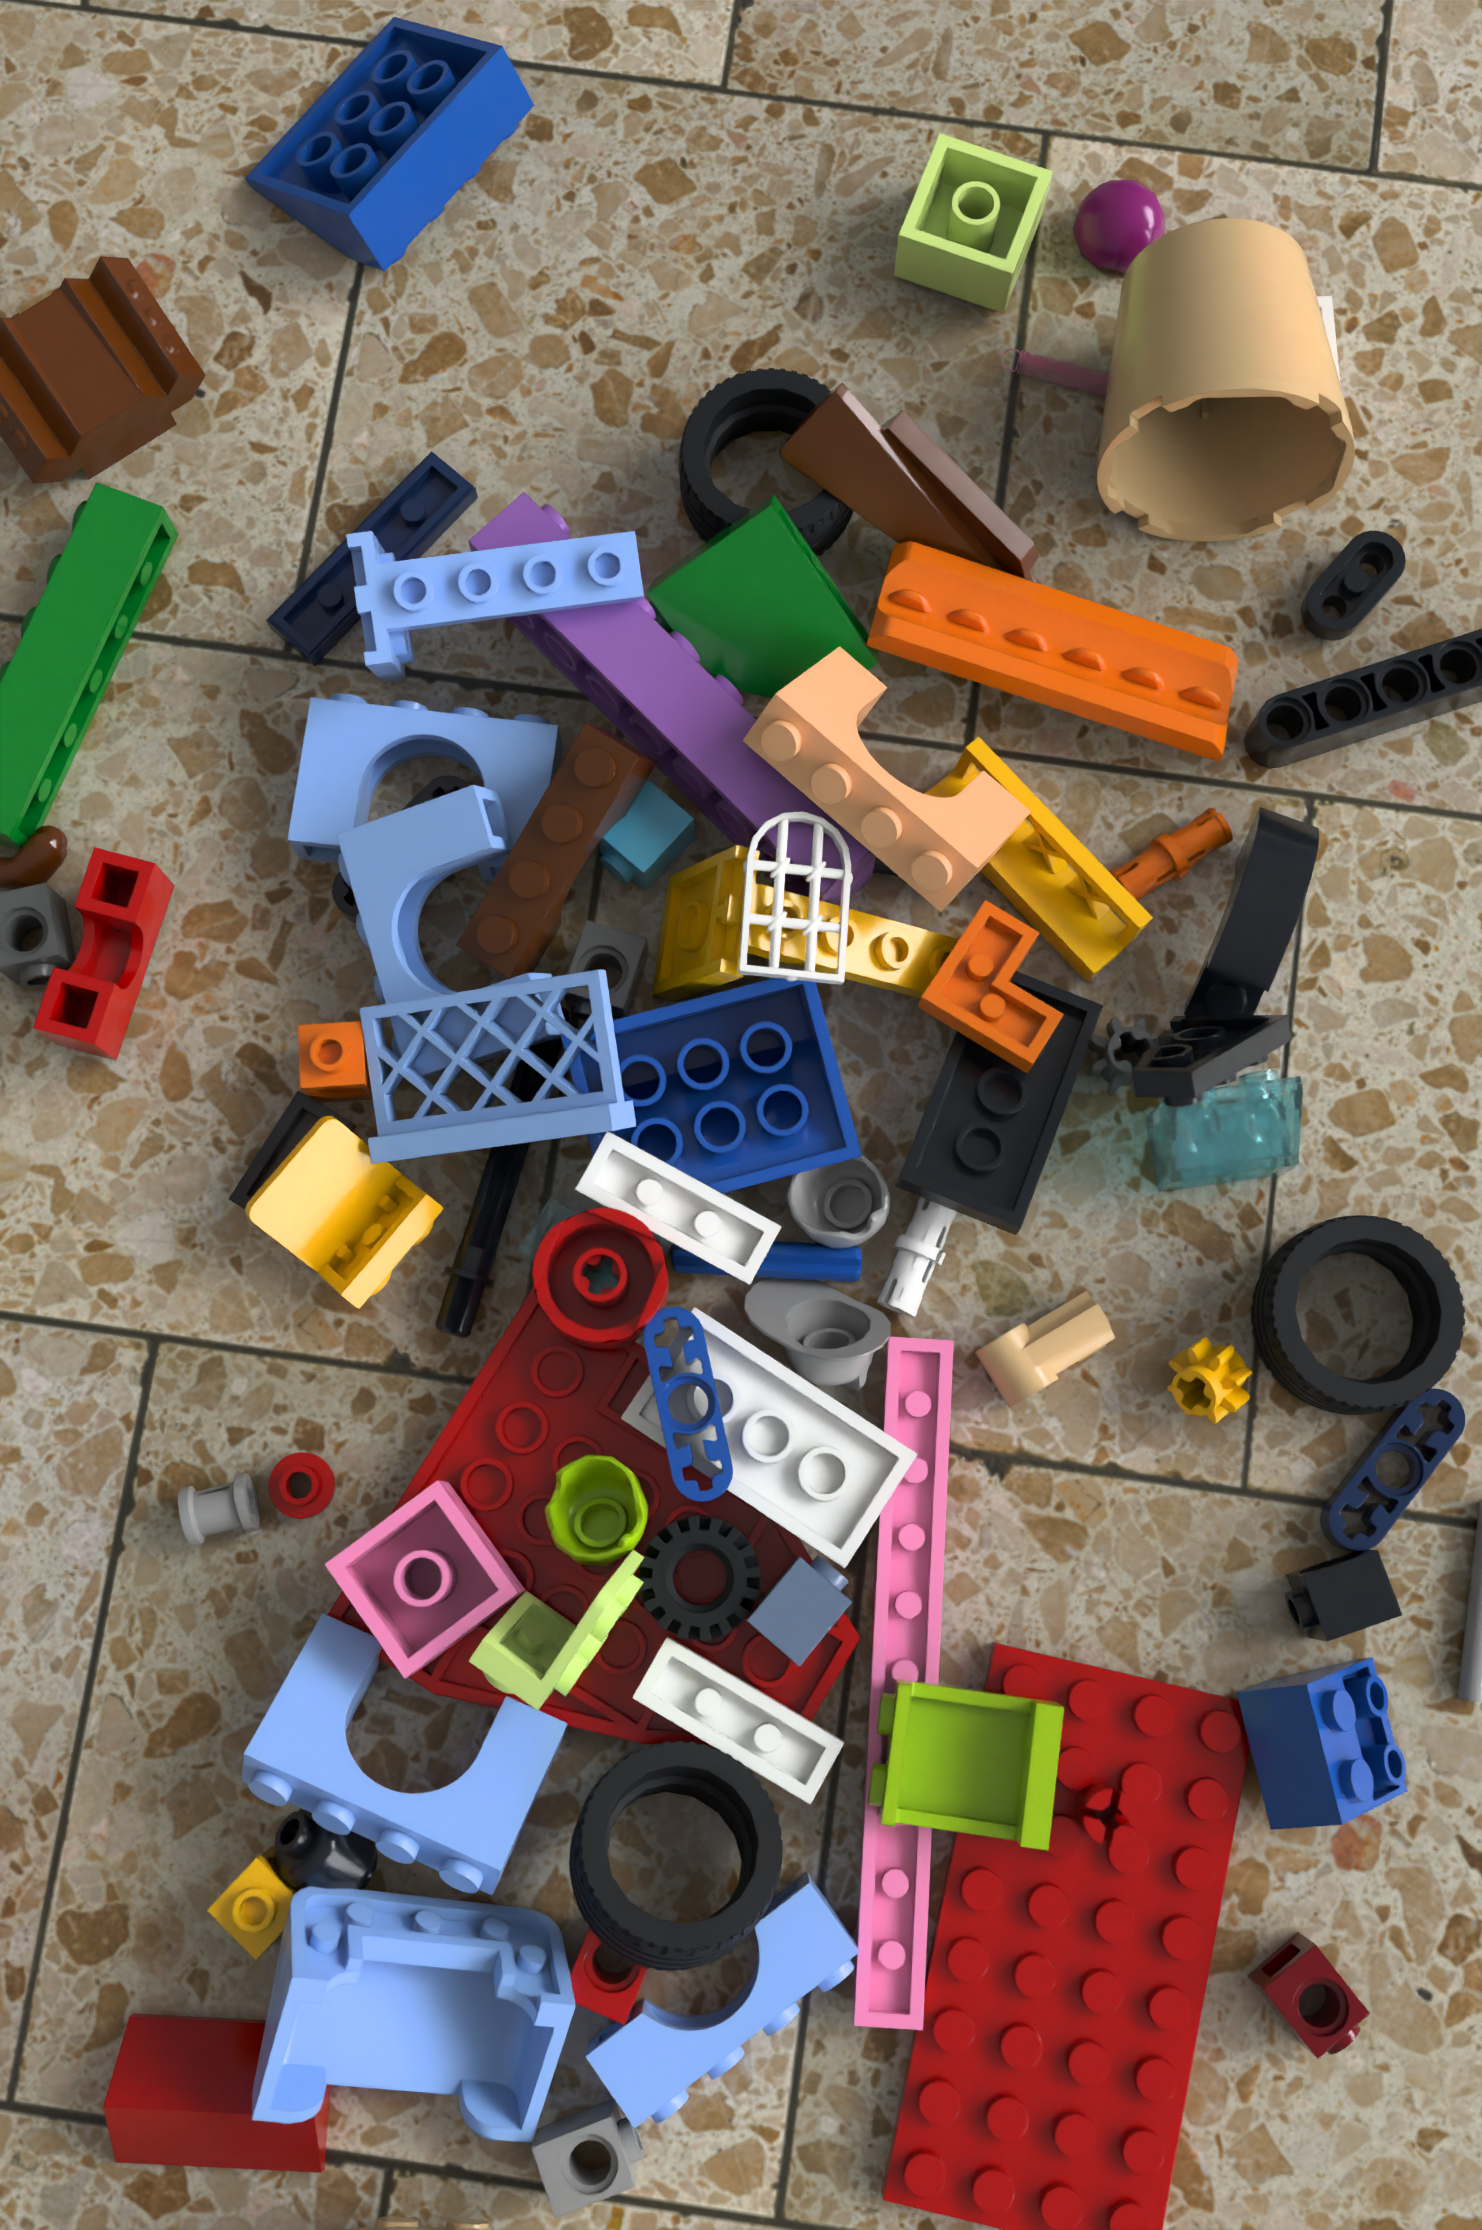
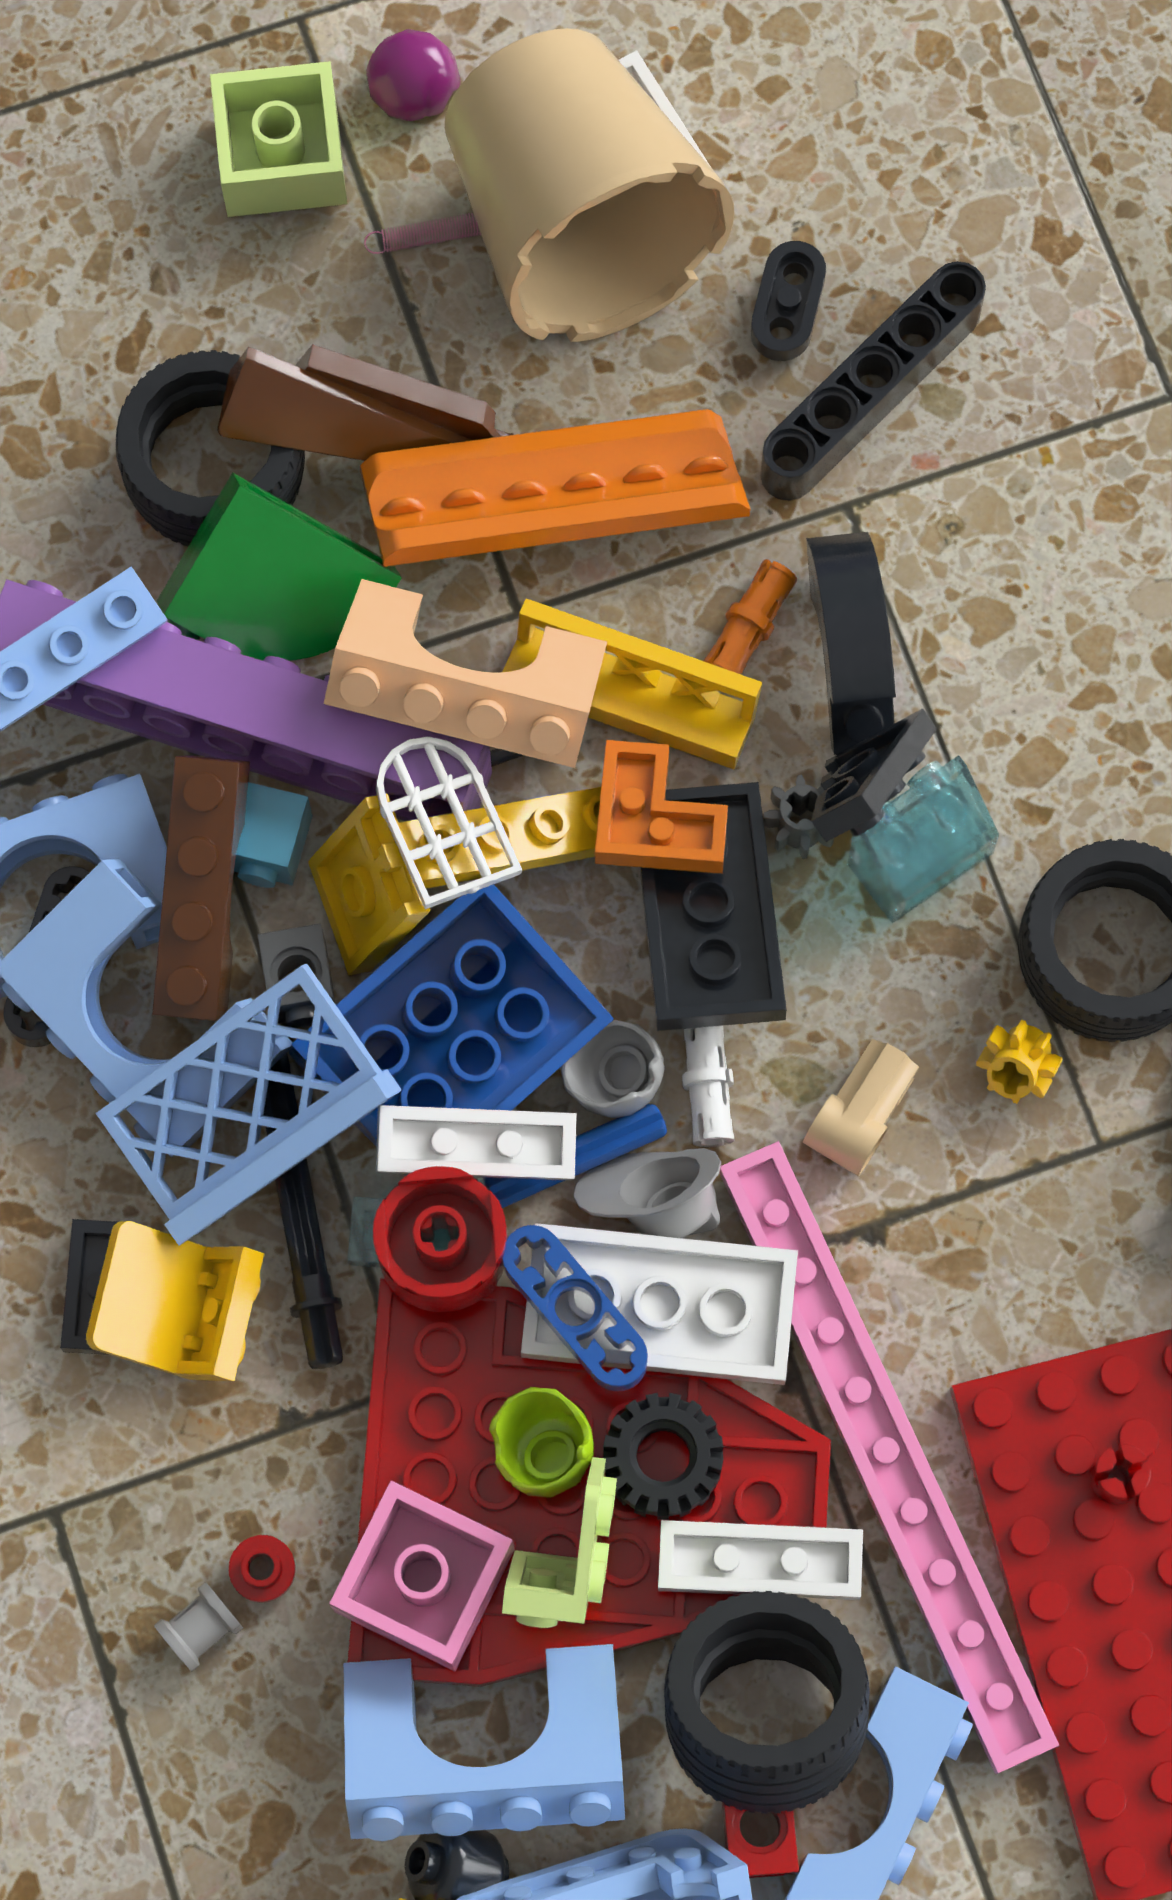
camera: 25 degrees left, 5 degrees down
(333, 1062) = (95, 1175): orange brick -> none
(801, 1607) = (765, 1435): sand blue brick -> none
(968, 1762) = (977, 1492): lime panel -> none

